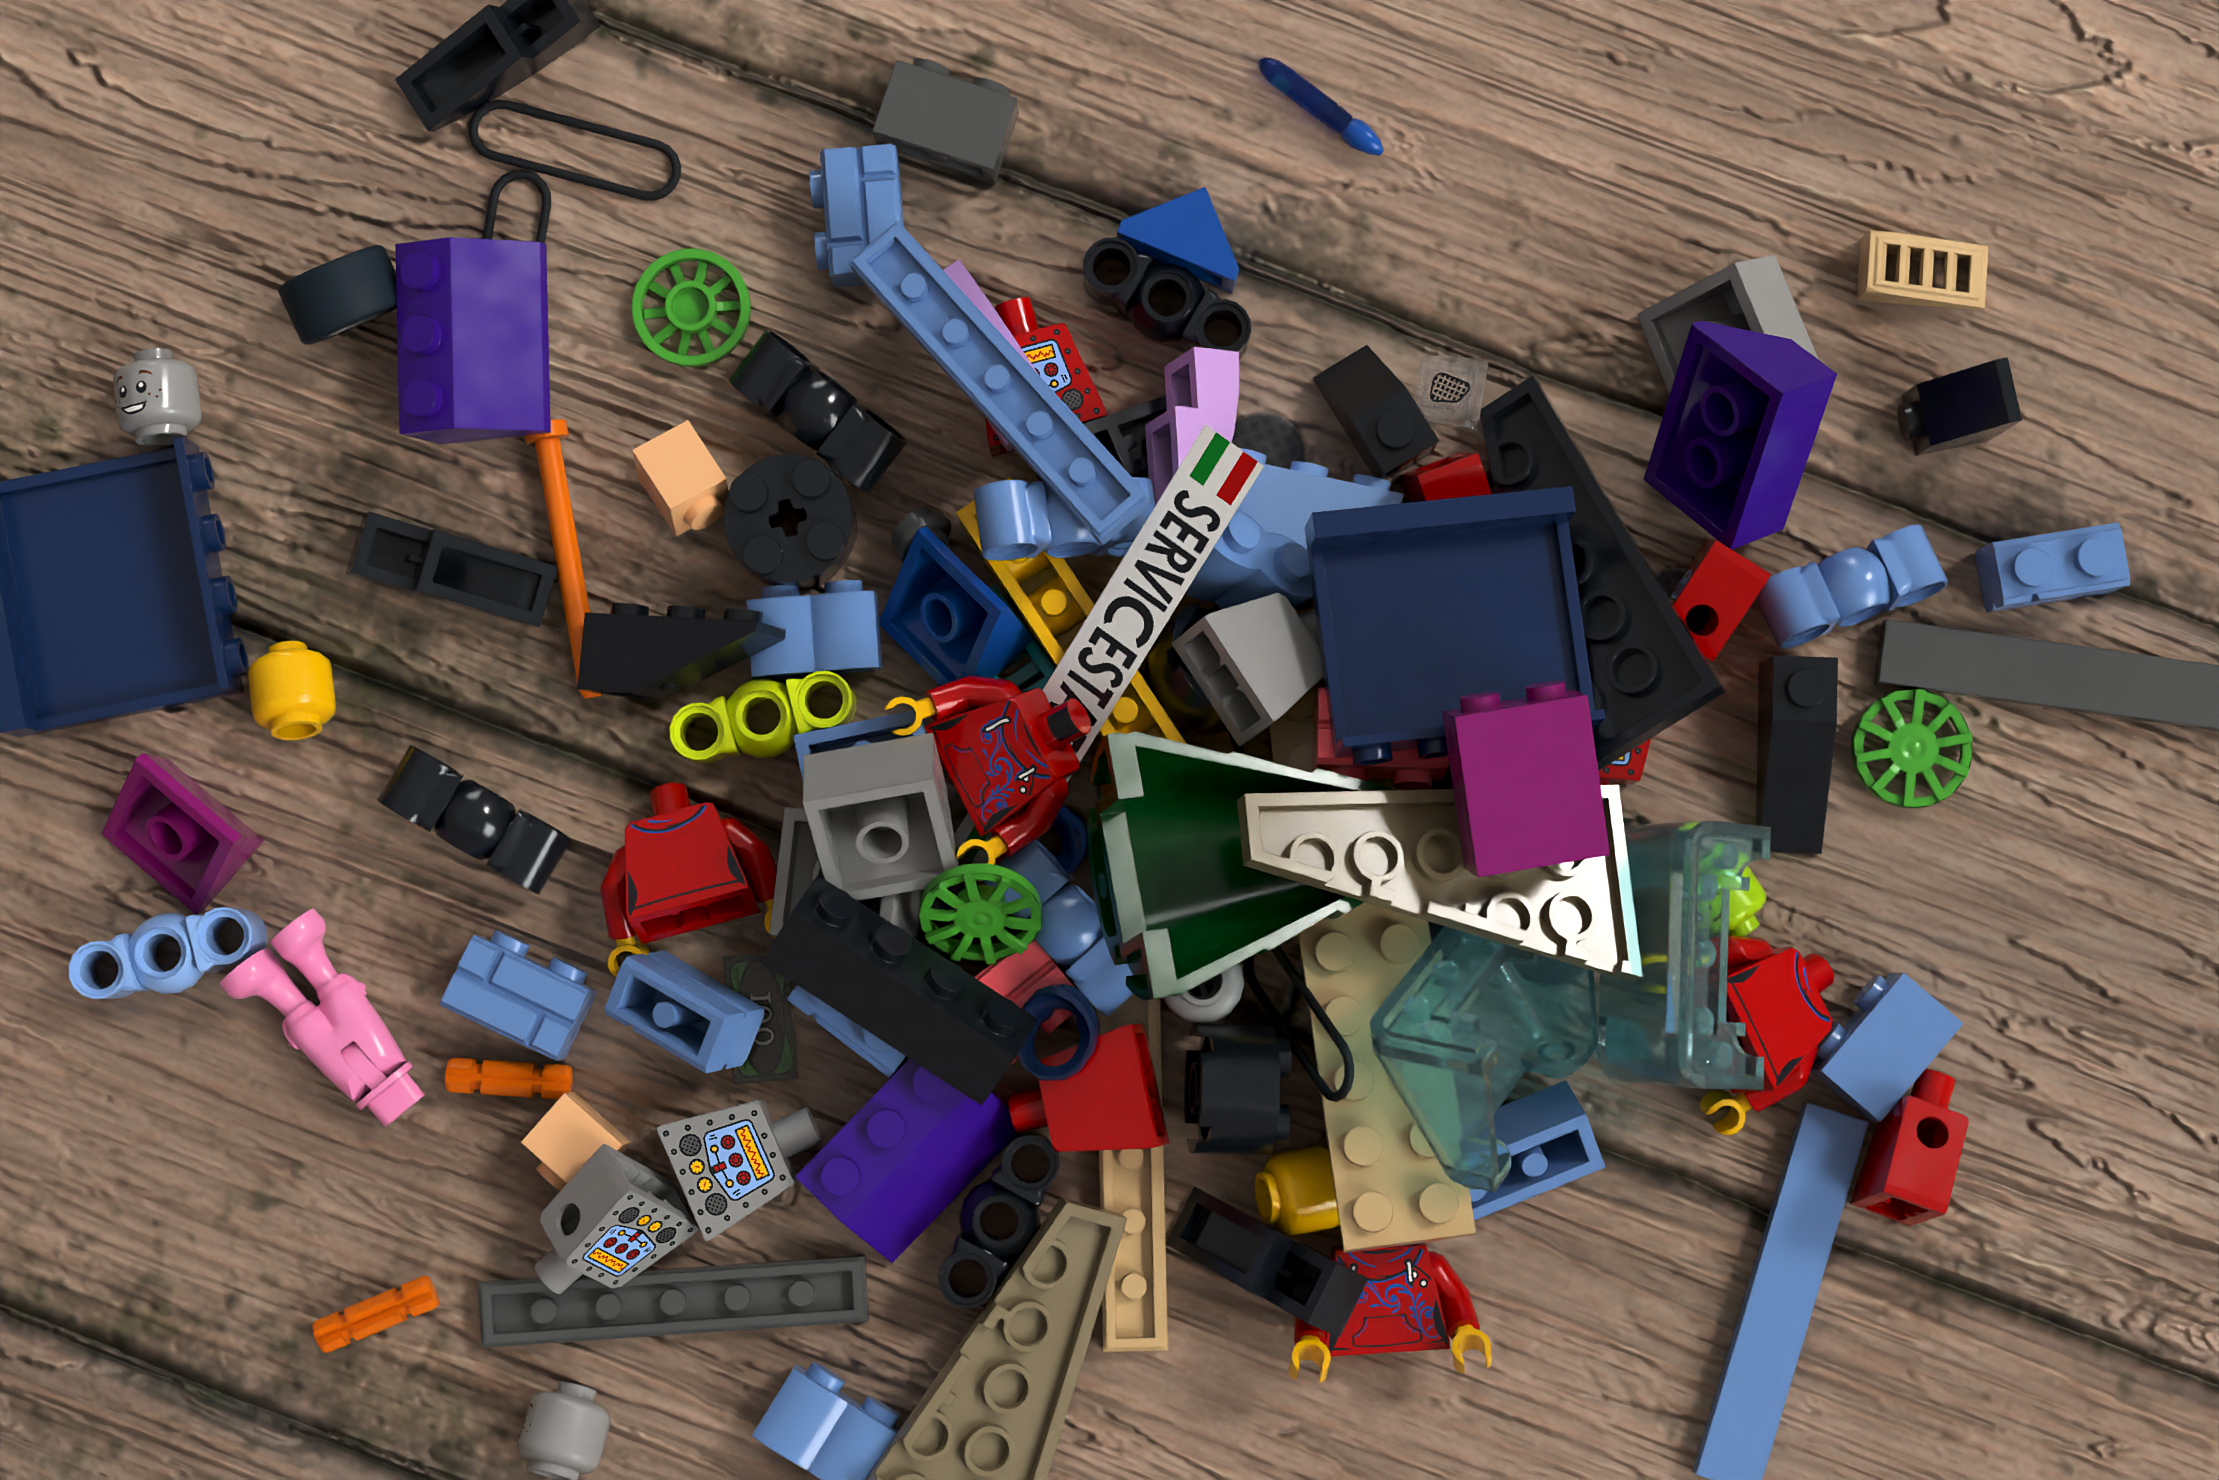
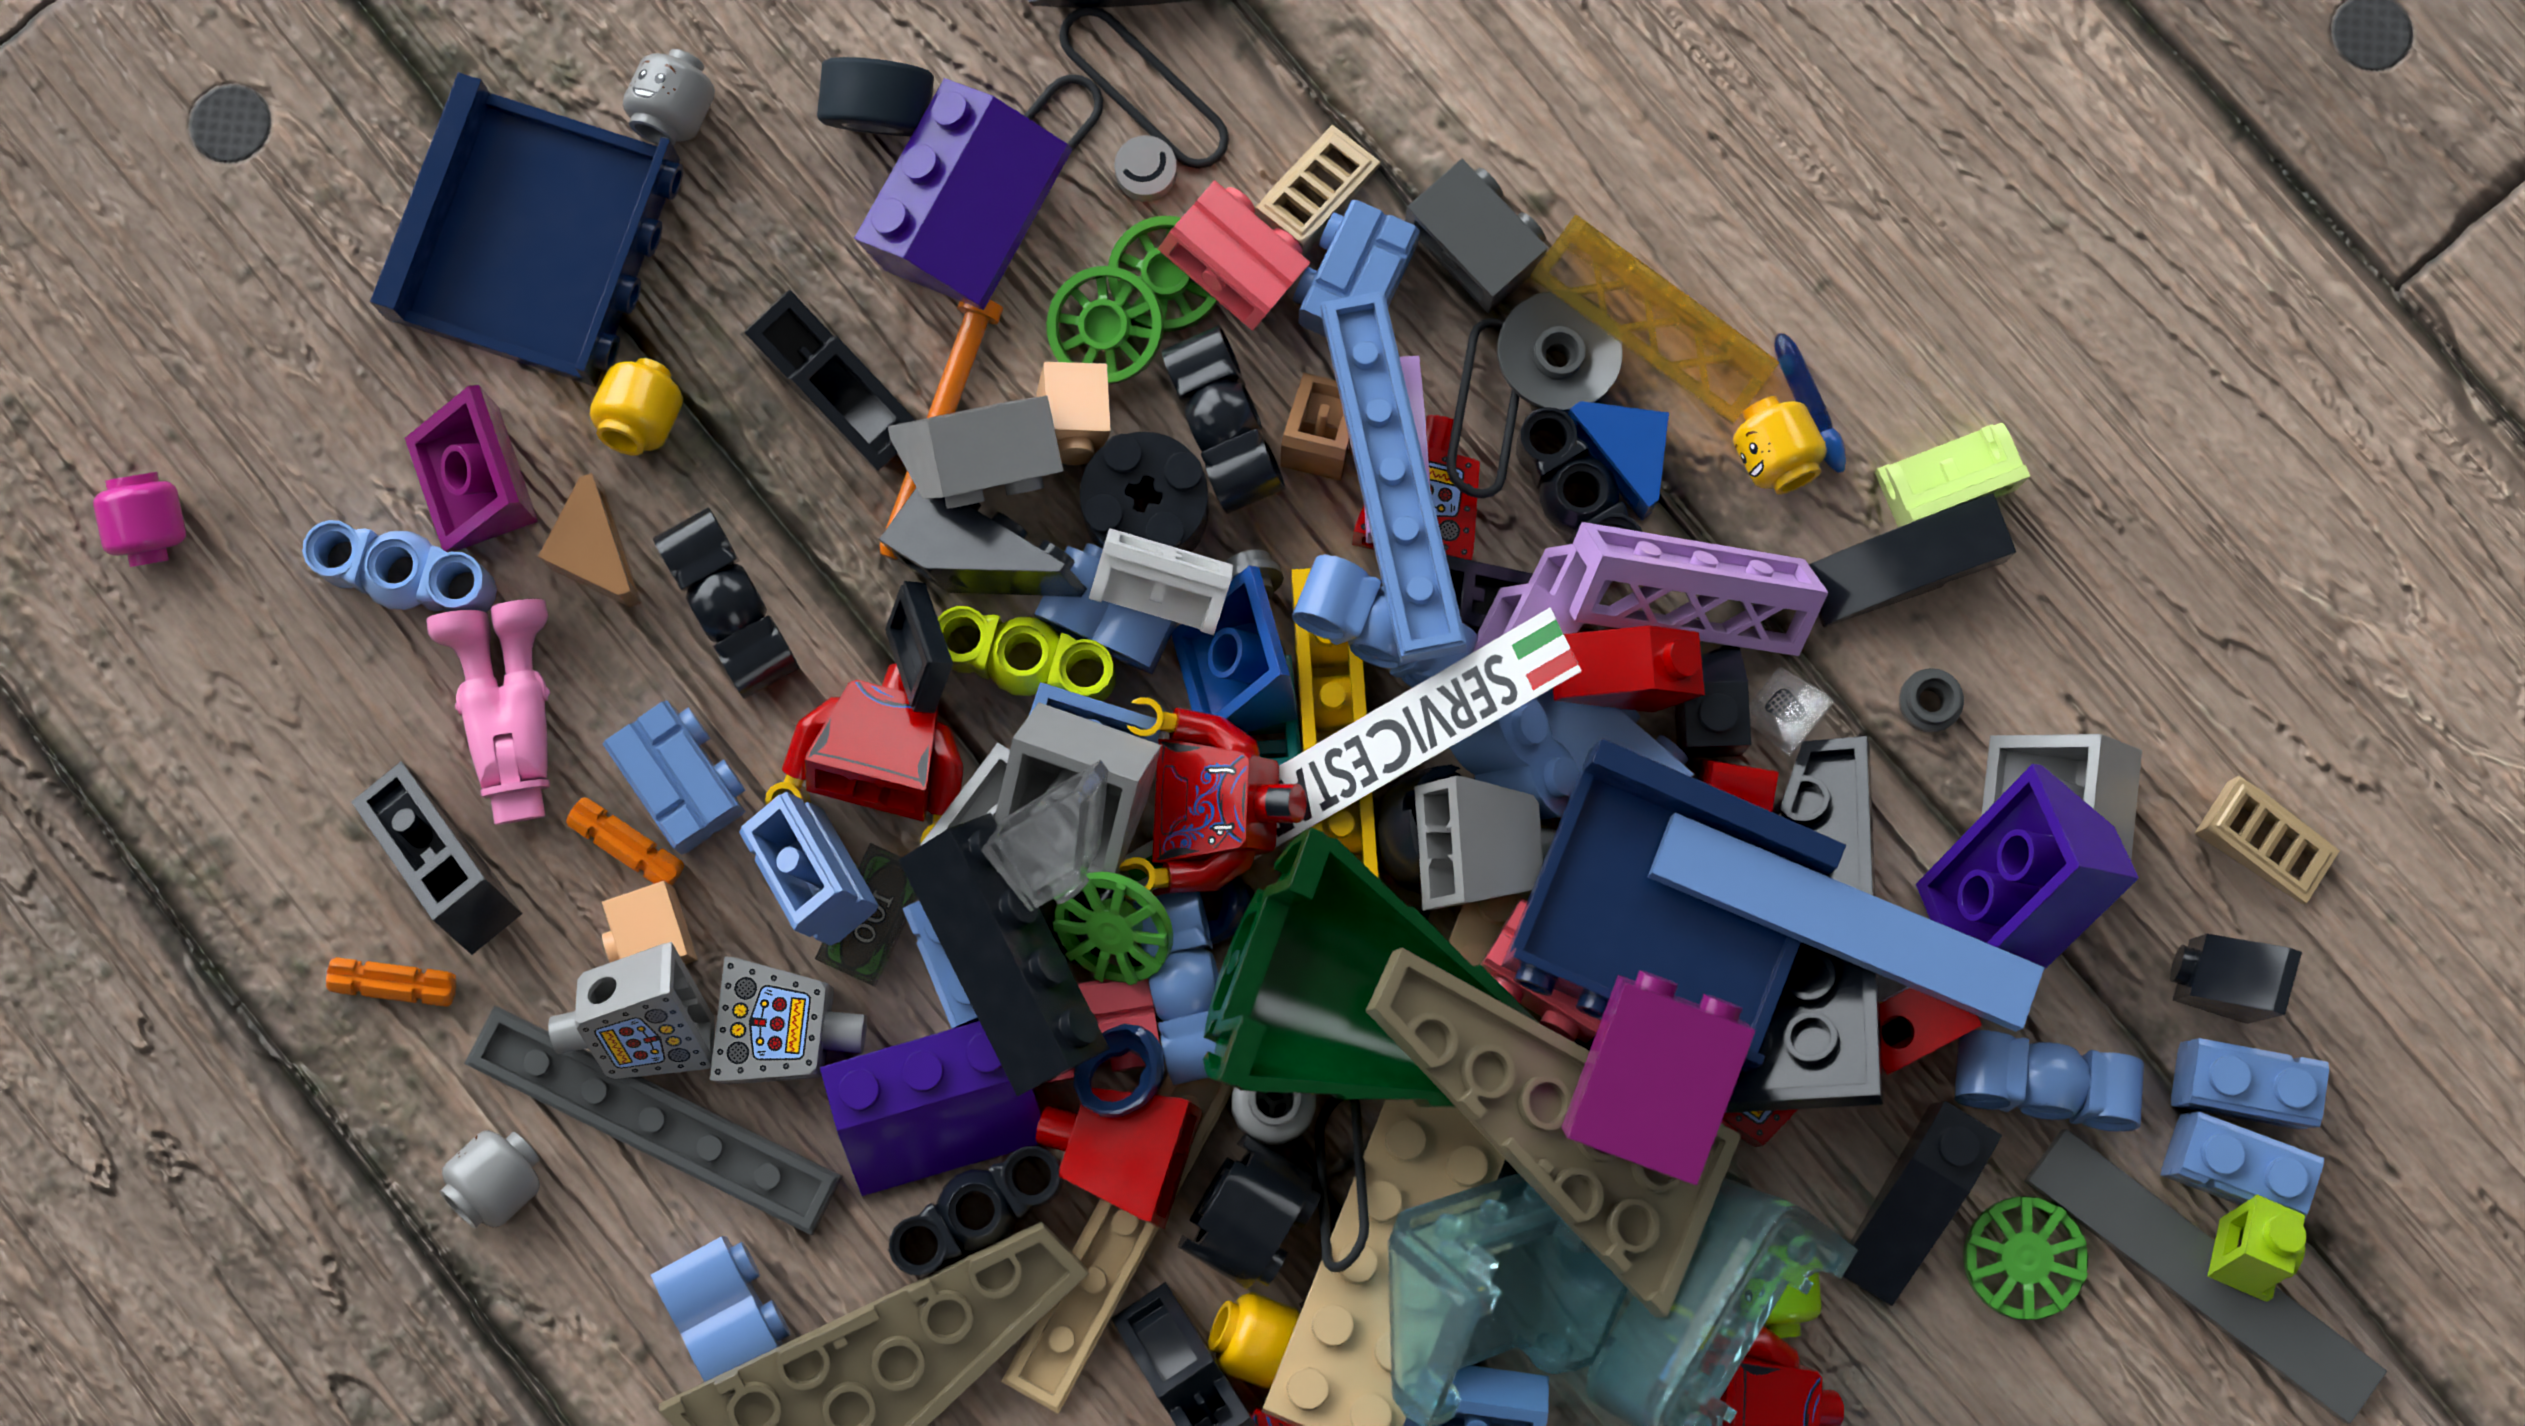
camera: 30 degrees right, 5 degrees down
(322, 837) = (588, 544): none -> medium nougat slope
(351, 1187) = (436, 859): none -> black slope
(619, 223) = (1145, 168): none -> light grey tile
(620, 560) = (980, 449): none -> light grey slope
(664, 382) = (1105, 322): none -> bright green wheel
(668, 763) = (918, 647): none -> black tile
(744, 257) = (1234, 253): none -> coral brick
(774, 206) = (1271, 208): none -> tan slope
(848, 586) = (1161, 581): none -> white hinge
(886, 870) = (1052, 839): none -> clear slope
(904, 372) = (1316, 430): none -> medium nougat slope
(1020, 282) = (1459, 416): none -> black piece
(1072, 156) = (1547, 325): none -> dark grey dish
(1148, 87) = (1667, 302): none -> clear yellow fence
(1303, 430) = (1634, 668): none -> red slope
(1304, 314) = (1702, 569): none -> lavender fence
(1316, 160) = (1780, 445): none -> yellow head
(1480, 104) = (1952, 474): none -> yellowish green hinge
(1484, 199) = (1913, 559): none -> black slope
(1583, 298) = (1944, 686): none -> dark grey plate
(1607, 552) = (1846, 922): none -> medium blue tile
(2020, 492) = (2250, 1084): none -> medium blue brick
(2114, 627) = (2269, 1249): none -> lime brick

